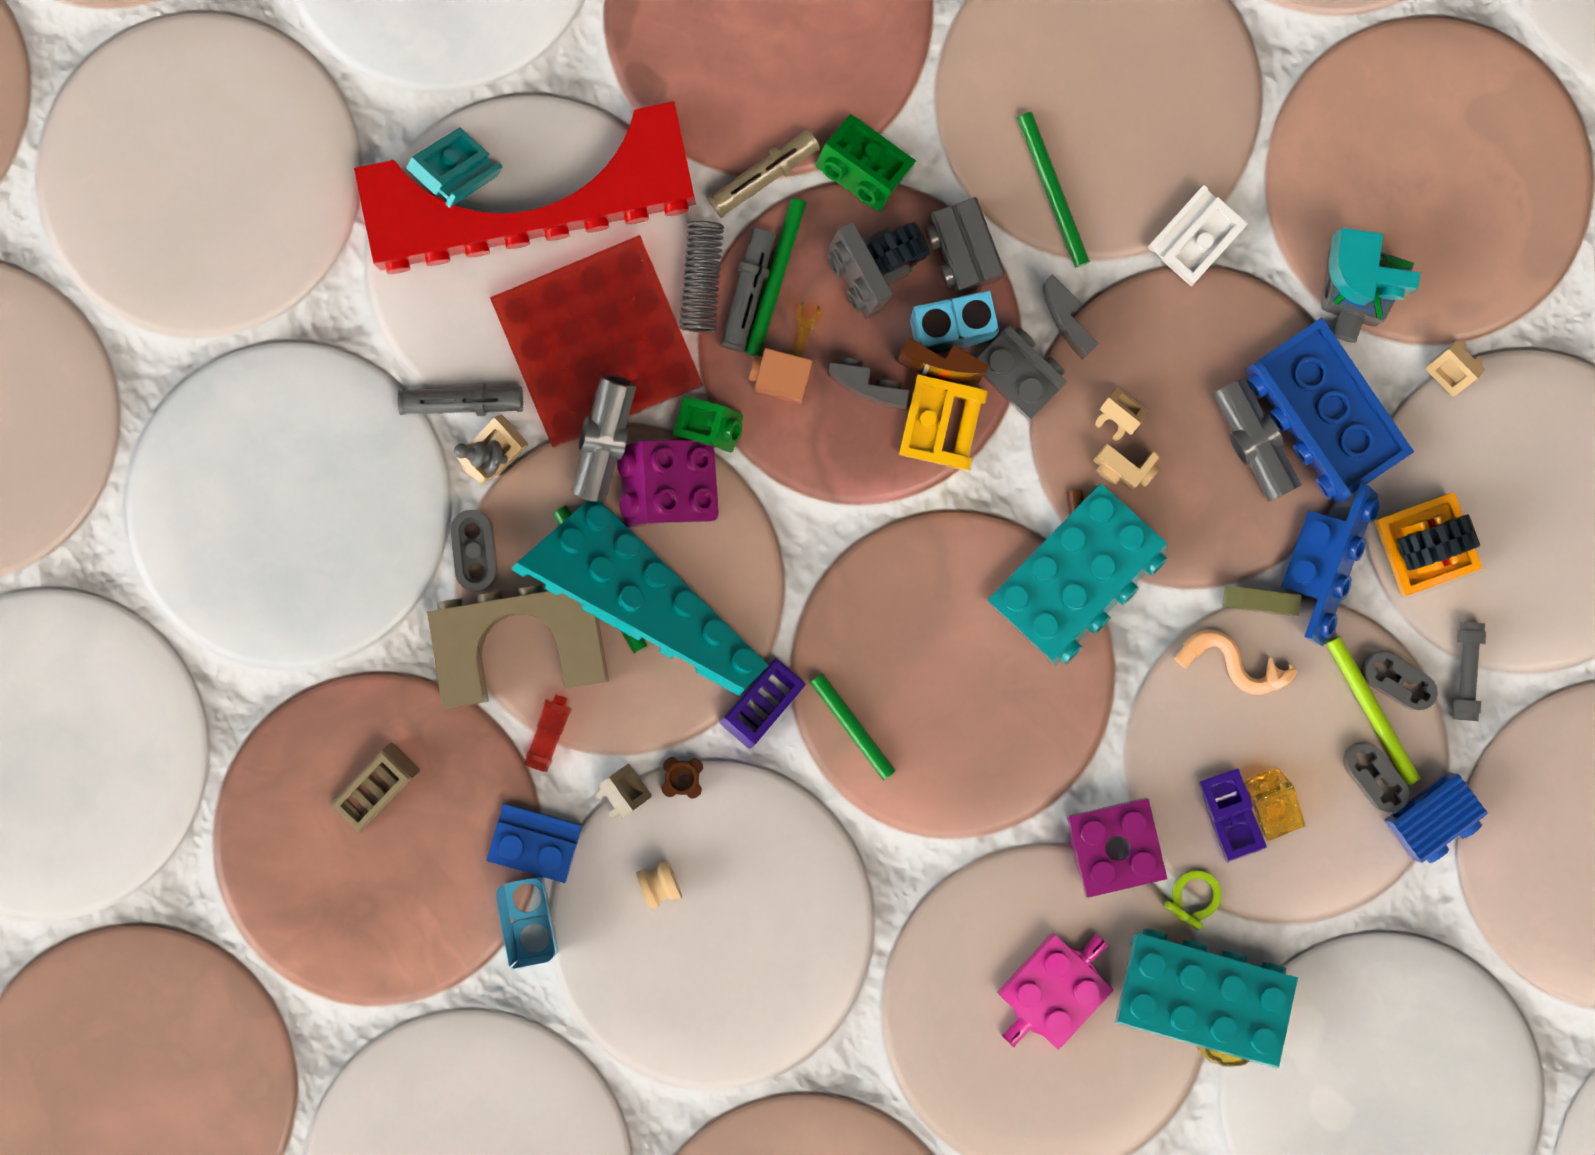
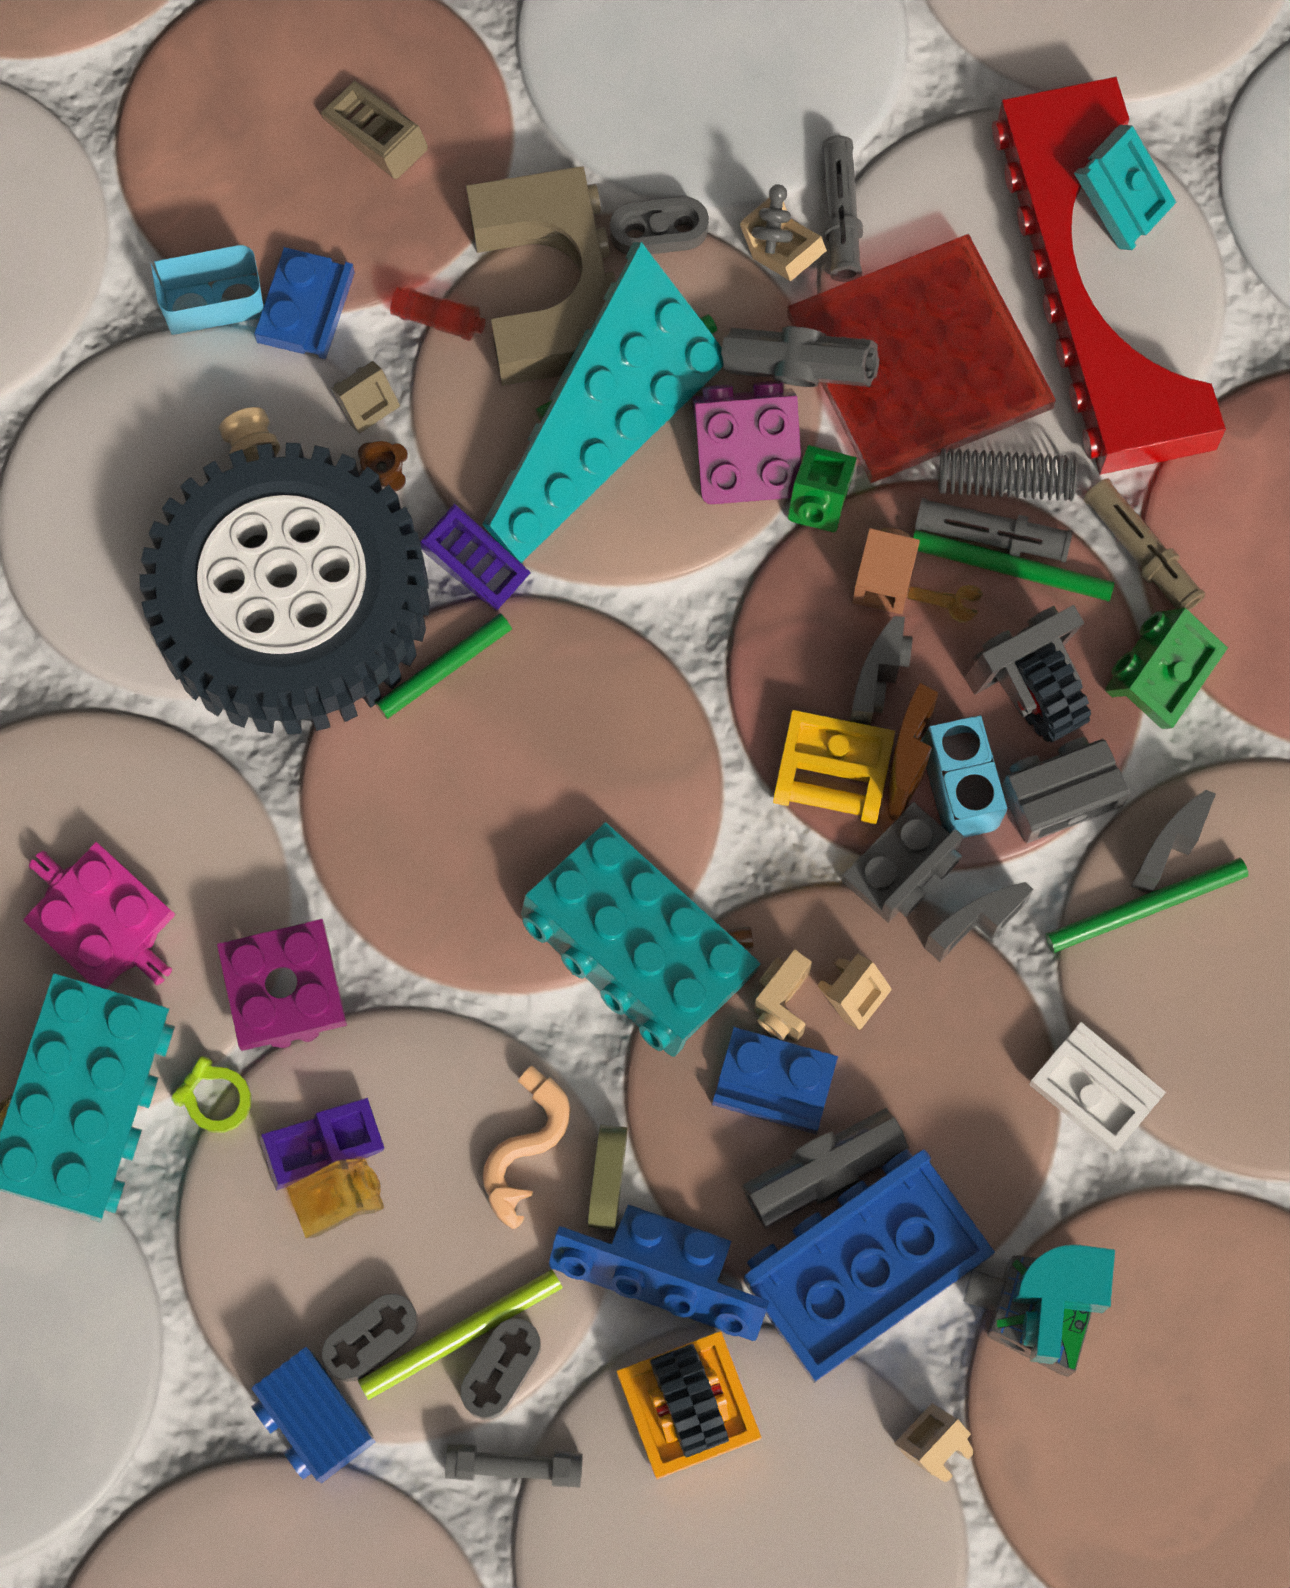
camera: 90 degrees right, 15 degrees down
(838, 911) = (290, 667): none -> black wheel
(996, 157) = (1179, 834): none -> dark grey slope
(1186, 475) = (775, 1080): none -> blue plate

